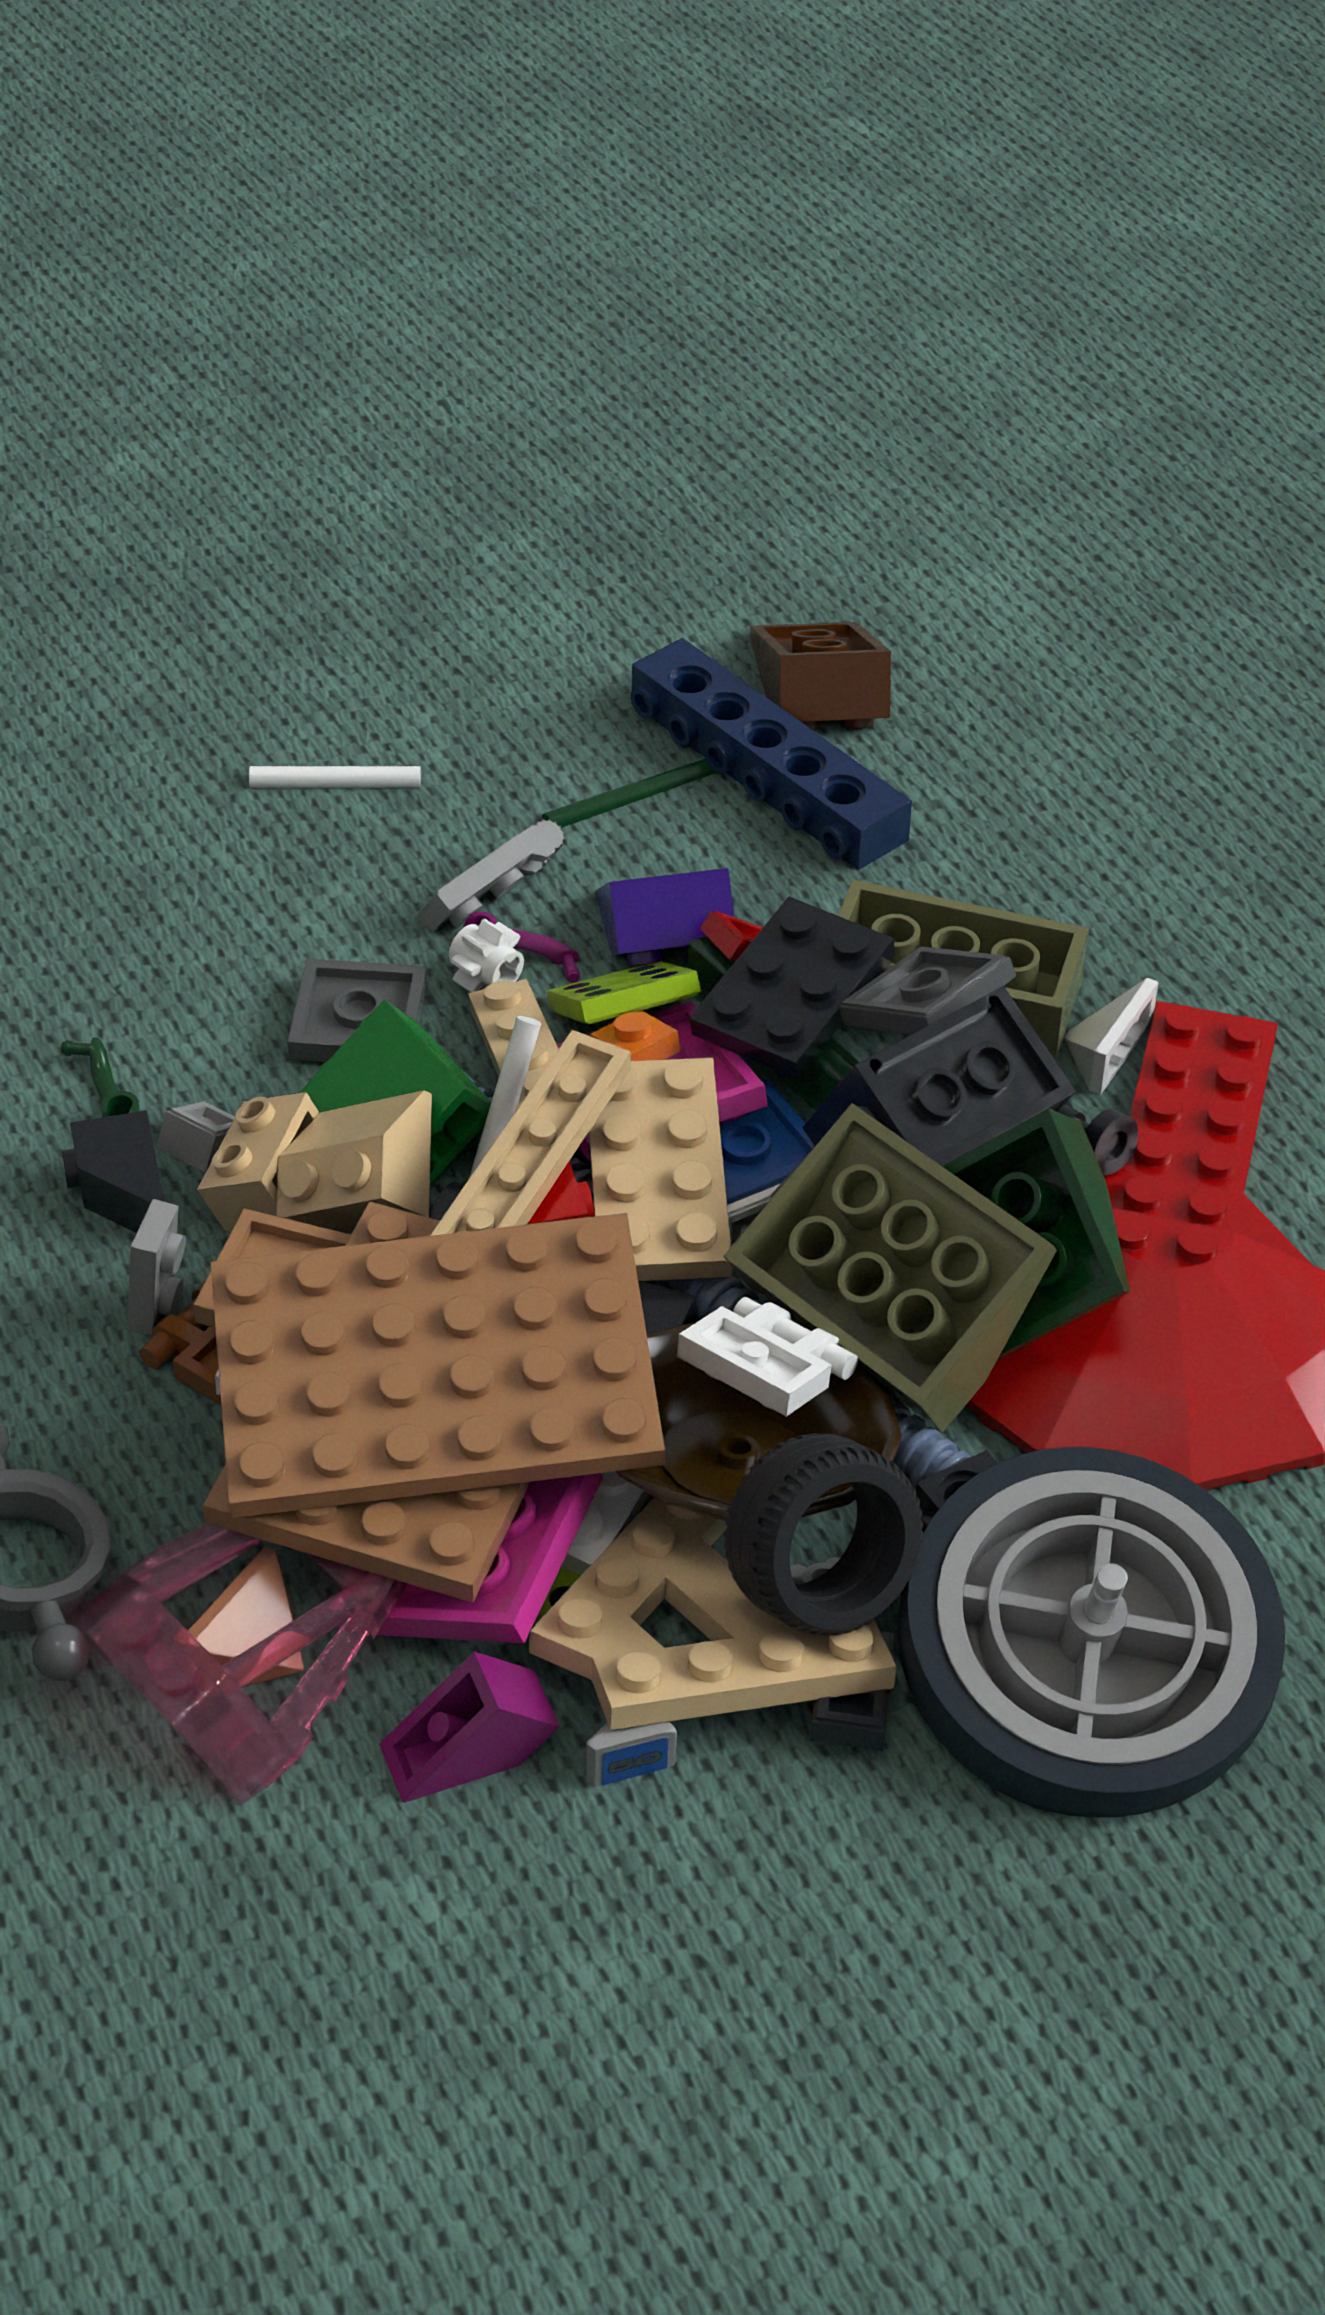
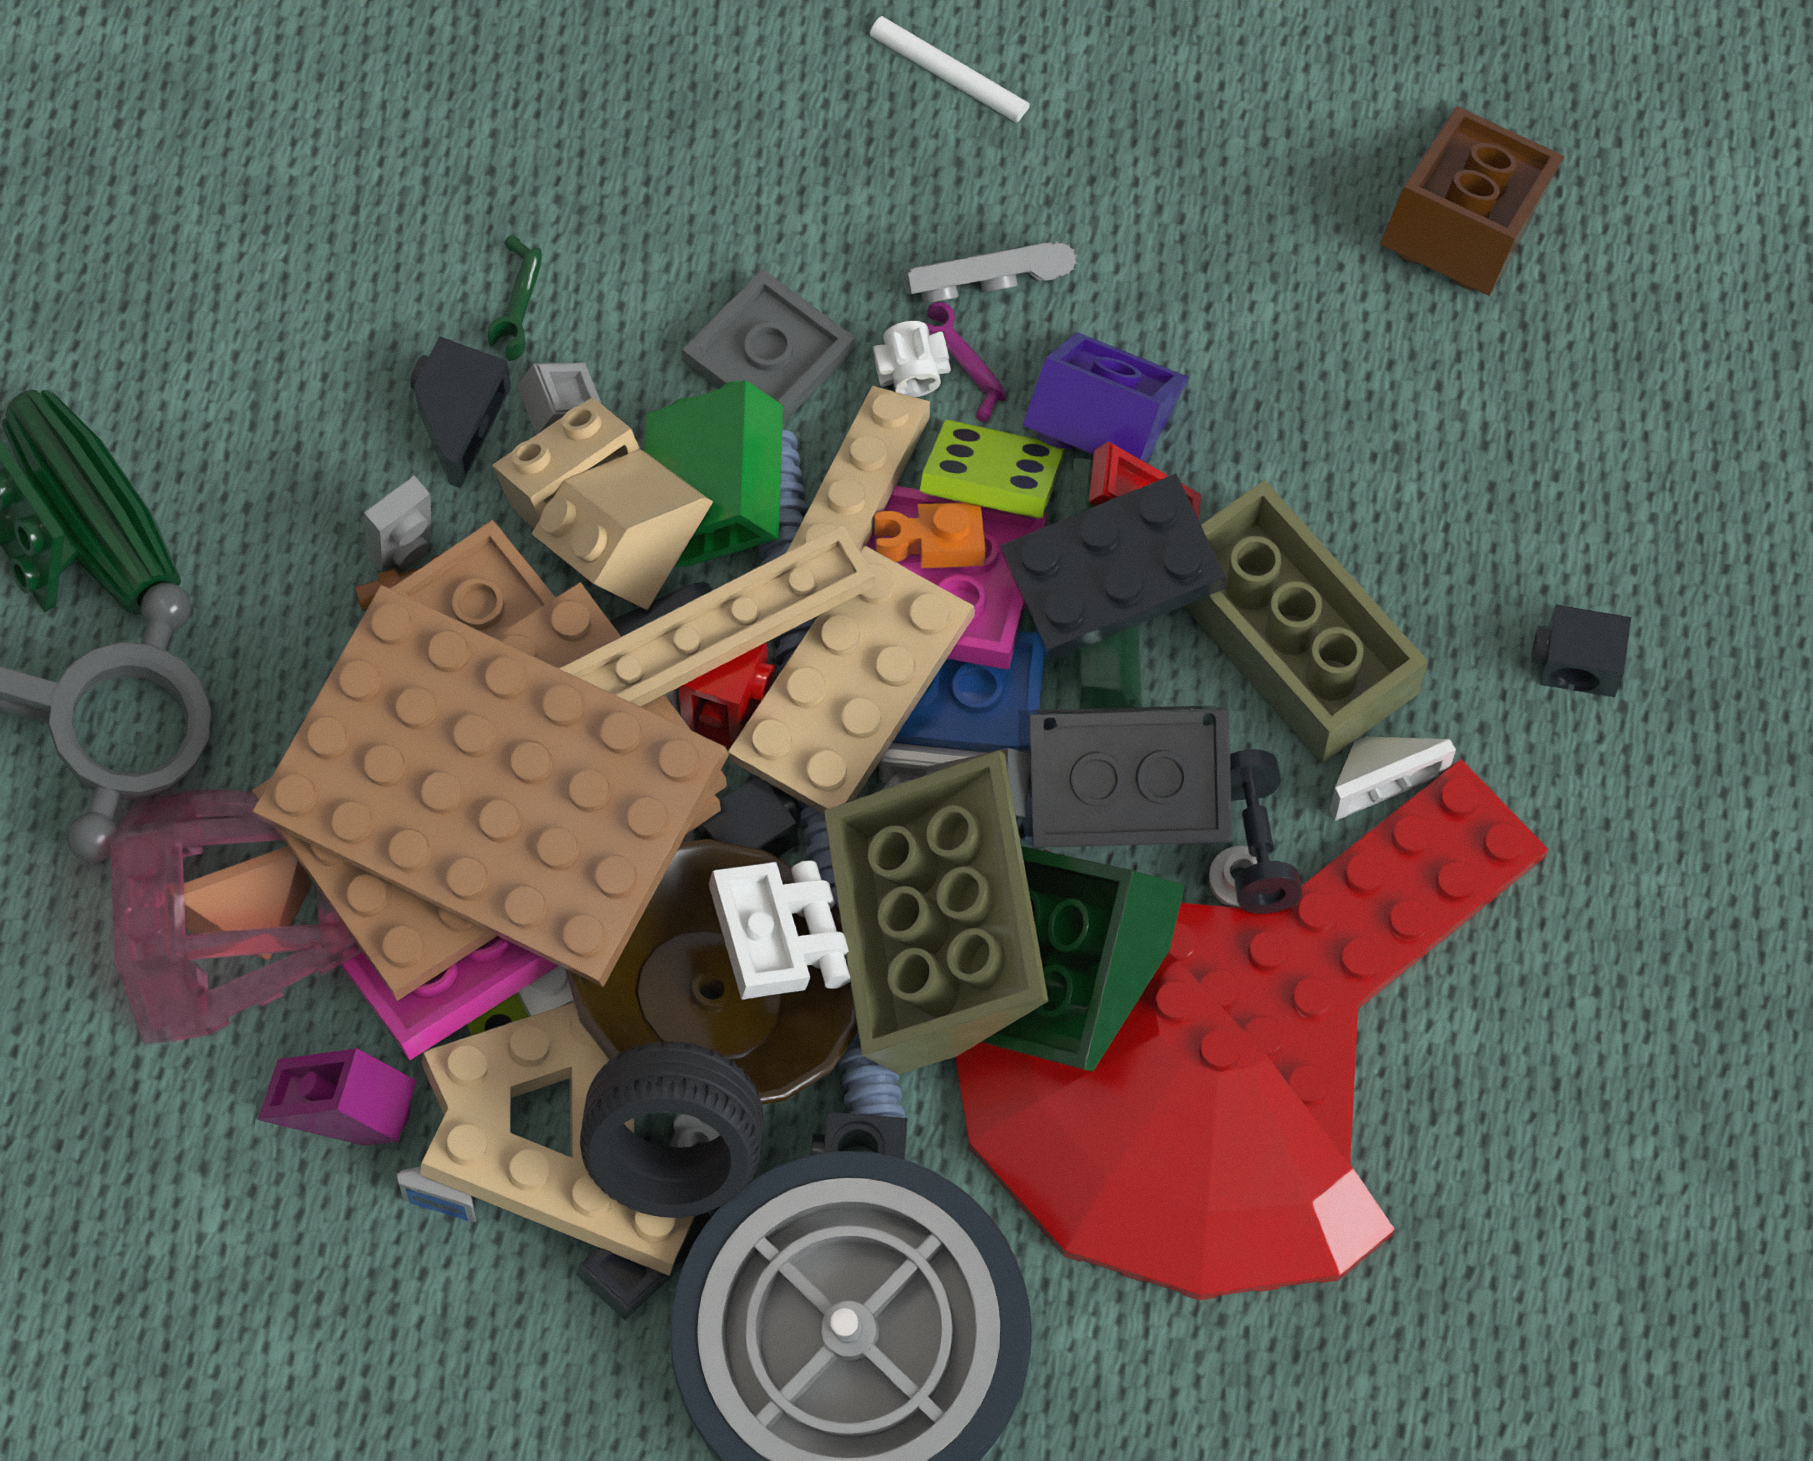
camera: 35 degrees right, 20 degrees up
(509, 1083) = (789, 526): white bar -> none
(628, 794) = (1213, 241): dark green bar -> none
(771, 754) = (1331, 138): dark blue brick -> none
(925, 989) = (1201, 654): dark grey tile -> none
(1178, 887) = (1582, 650): none -> black brick

